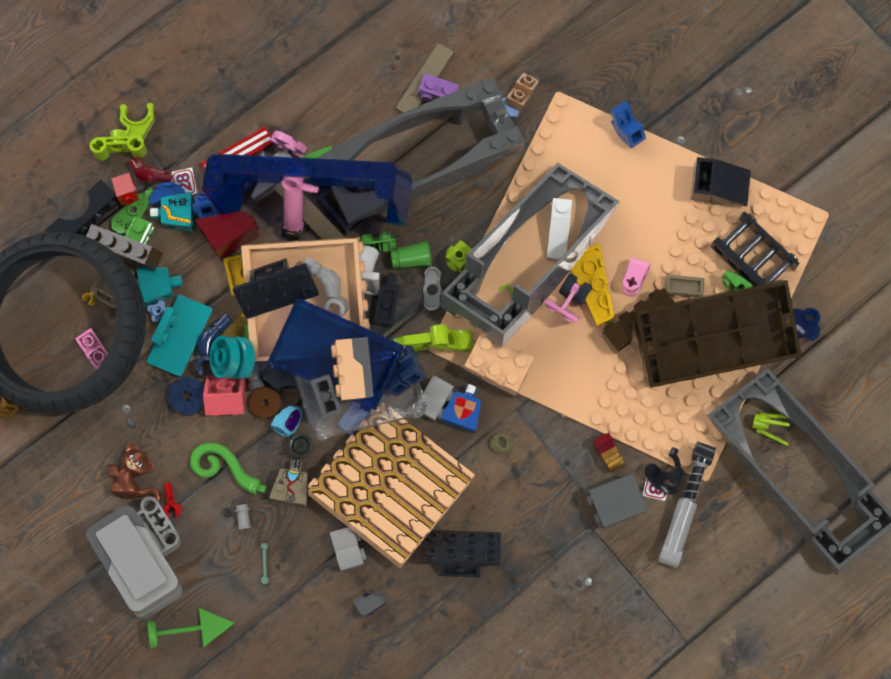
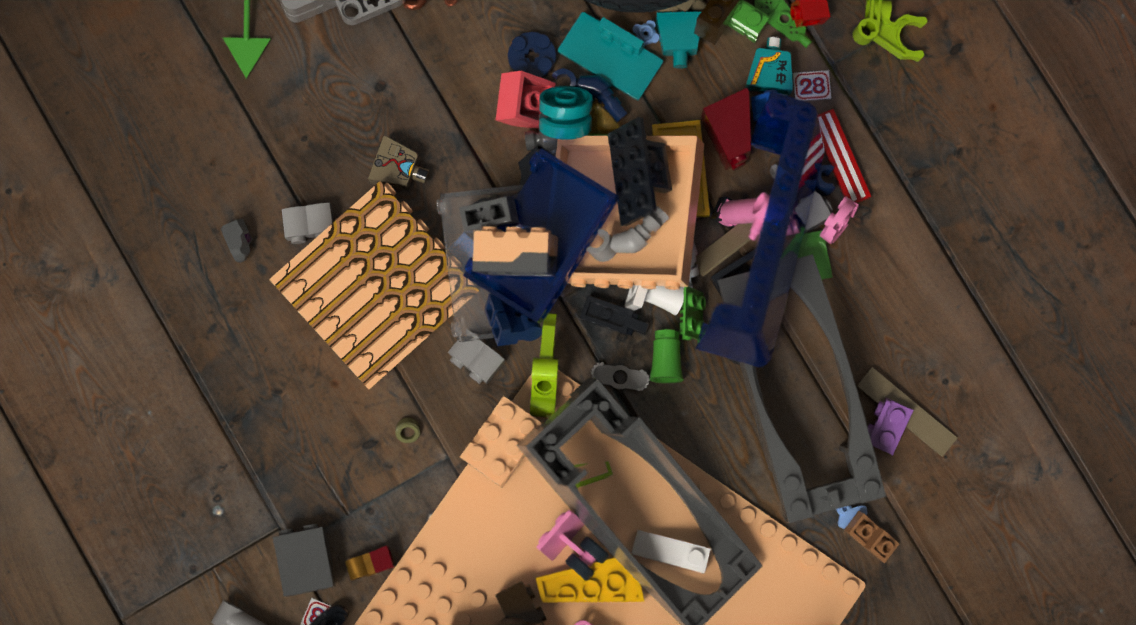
camera: 100 degrees right, 5 degrees up
(148, 173) = (828, 40): dark red arm -> none
(164, 190) = (801, 61): blue tile -> none
(170, 501) = (403, 20): red bar -> none
(243, 516) = (370, 103): light grey pin -> none
(247, 482) = (411, 113): bright green plant -> none
(264, 579) = (290, 120): sand green hinge -> none
(271, 409) = (507, 138): reddish brown piece -> none
(287, 421) = (478, 172): medium azure rock -> none
(300, 445) = (443, 181): pearl dark grey piece -> none
(457, 255) = (661, 409): lime brick -> none
(461, 551) = (280, 360): black bracket -> none
(463, 410) = (455, 390): blue torso -> none

